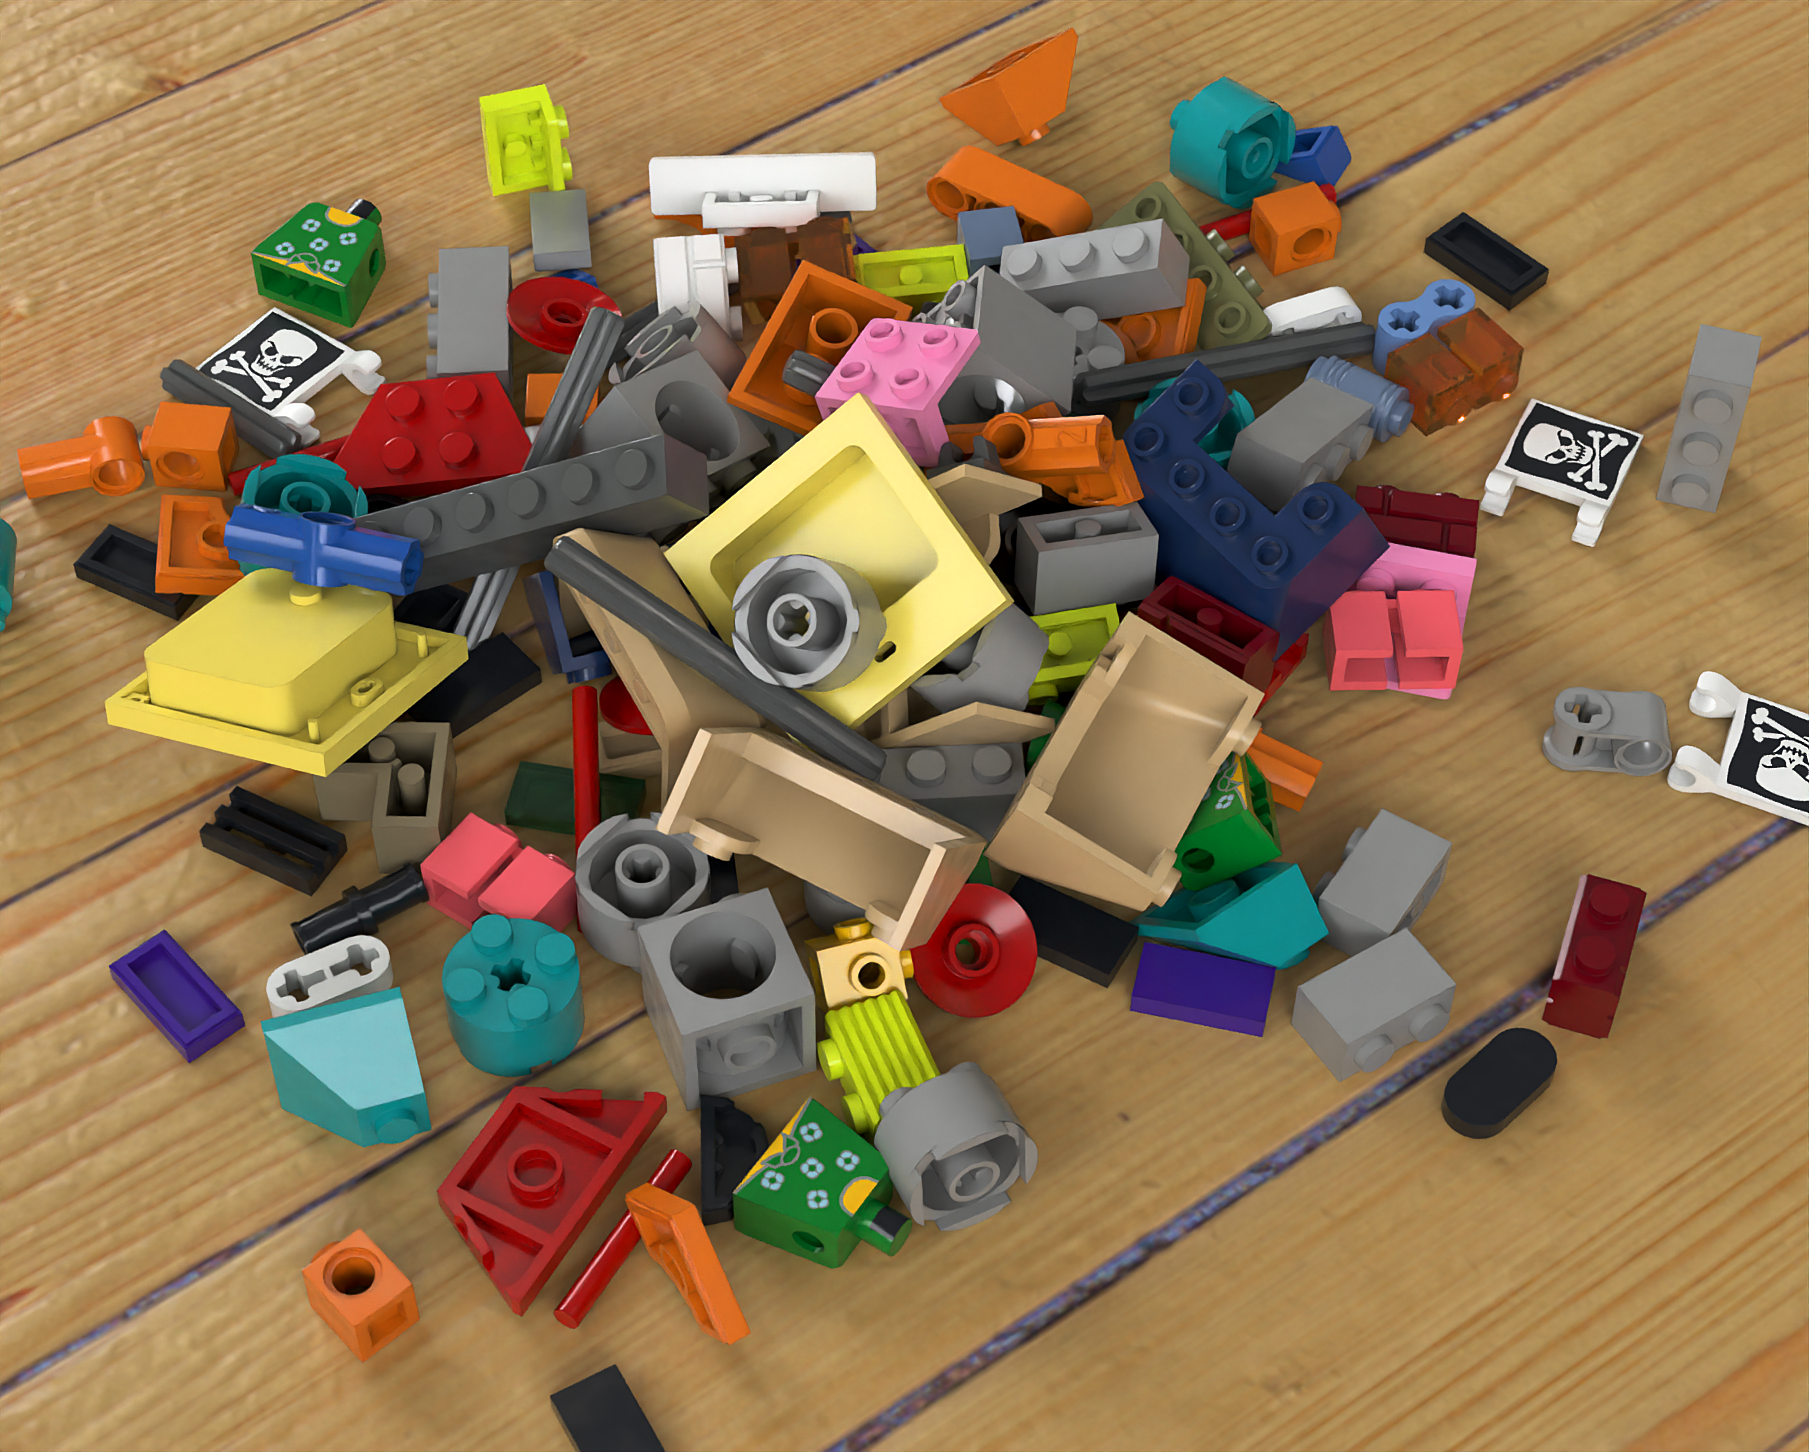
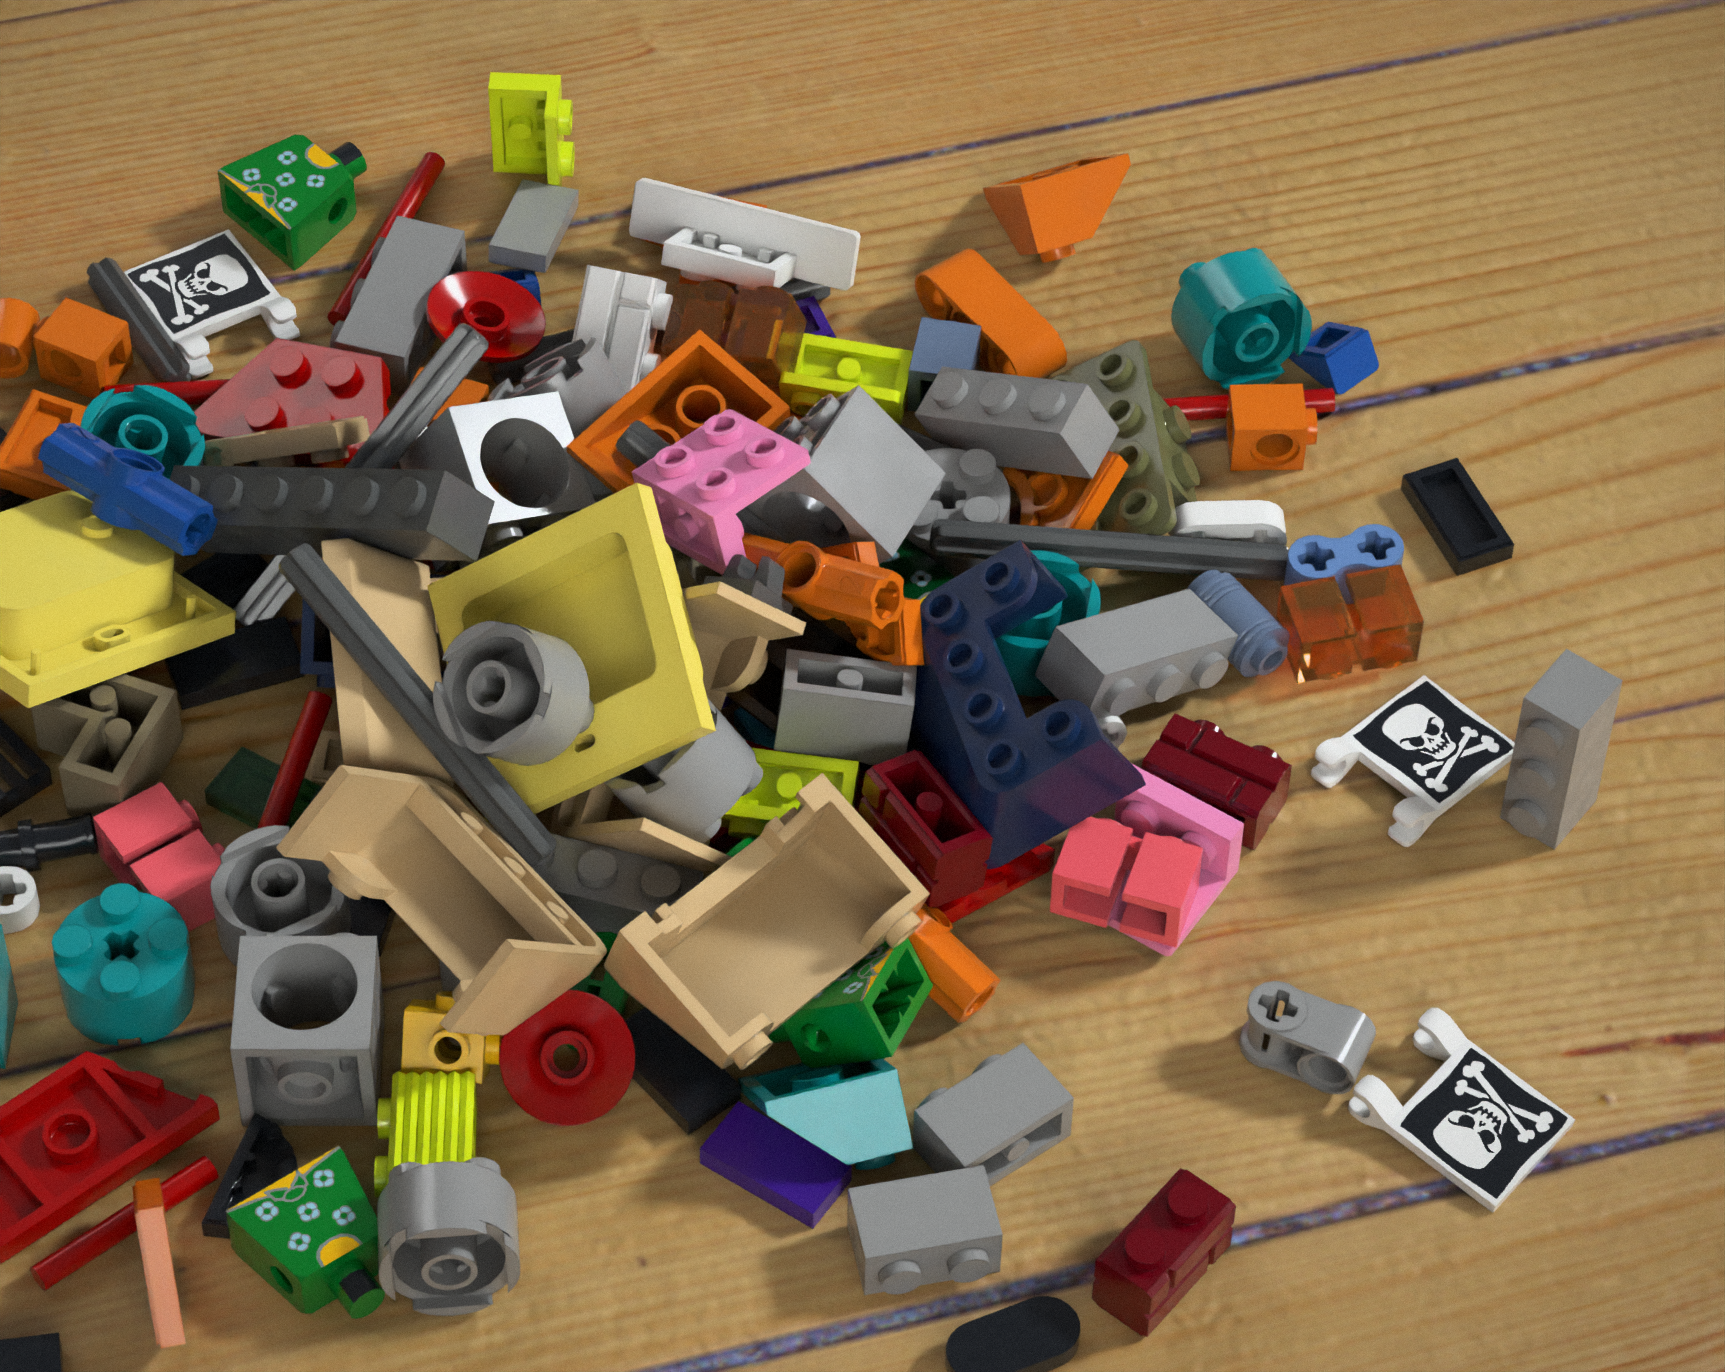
camera: 20 degrees right, 0 degrees up
(428, 262) = (405, 206): none -> red bar
(435, 477) = (277, 447): none -> tan hinge

